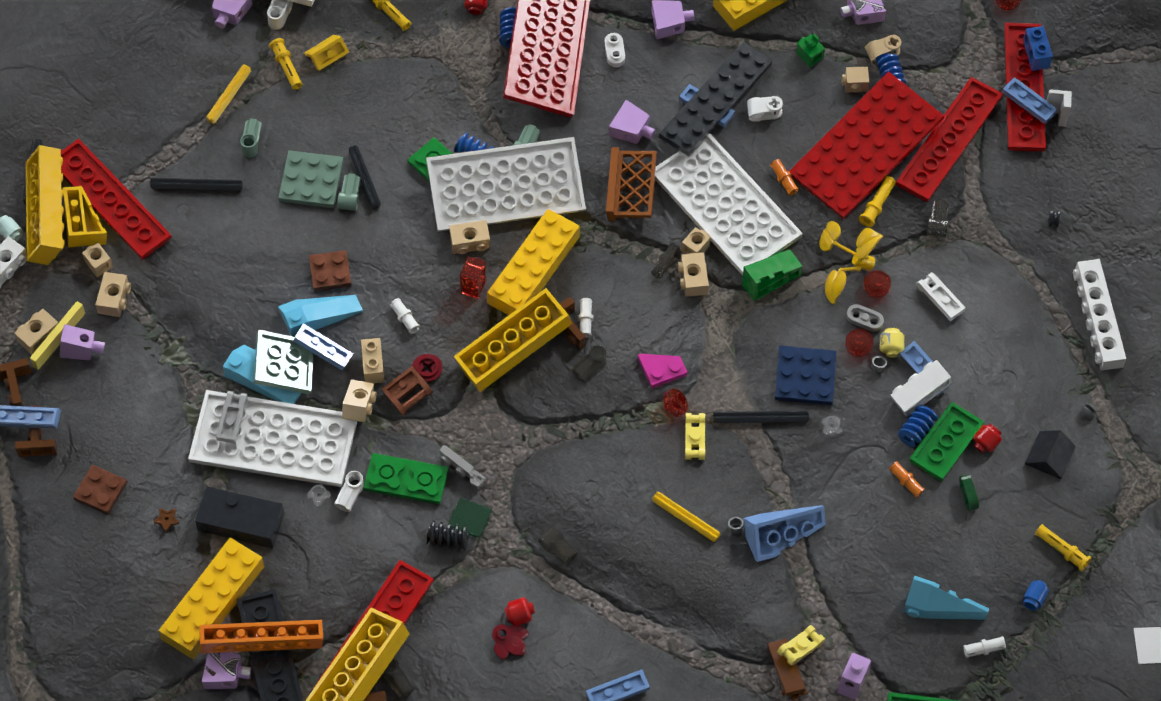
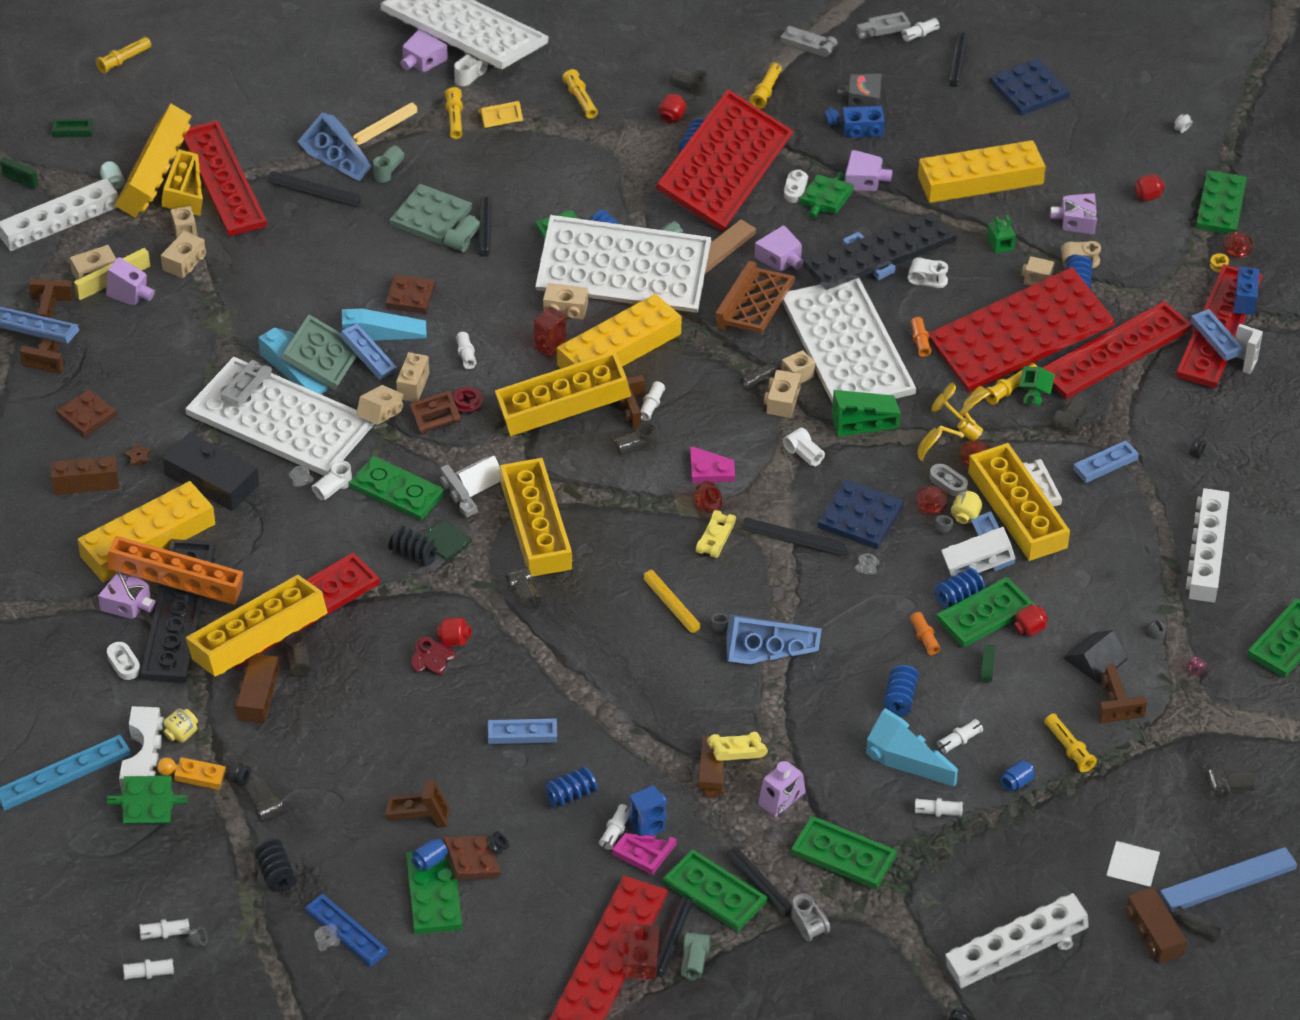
camera: 20 degrees right, 15 degrees down
(131, 558) = (84, 475): none -> reddish brown brick
(195, 133) = (334, 146): none -> medium blue wedge
(471, 442) = (480, 475): none -> white panel
(540, 472) = (536, 517): none -> yellow brick
(583, 125) = (729, 242): none -> medium nougat tile
(645, 51) = (826, 194): none -> green plate
(729, 321) = (801, 443): none -> white piece
(901, 196) = (1036, 382): none -> green brick
(910, 544) = (901, 690): none -> blue piece
(933, 323) = (1018, 502): none -> yellow brick
(974, 571) = (960, 736): none -> white pin
(985, 257) = (1105, 461): none -> medium blue plate
(994, 18) = (1217, 258): none -> yellow bush
(1084, 491) = (1118, 705): none -> reddish brown bracket
(1137, 436) = (1198, 664): none -> clear pink hinge

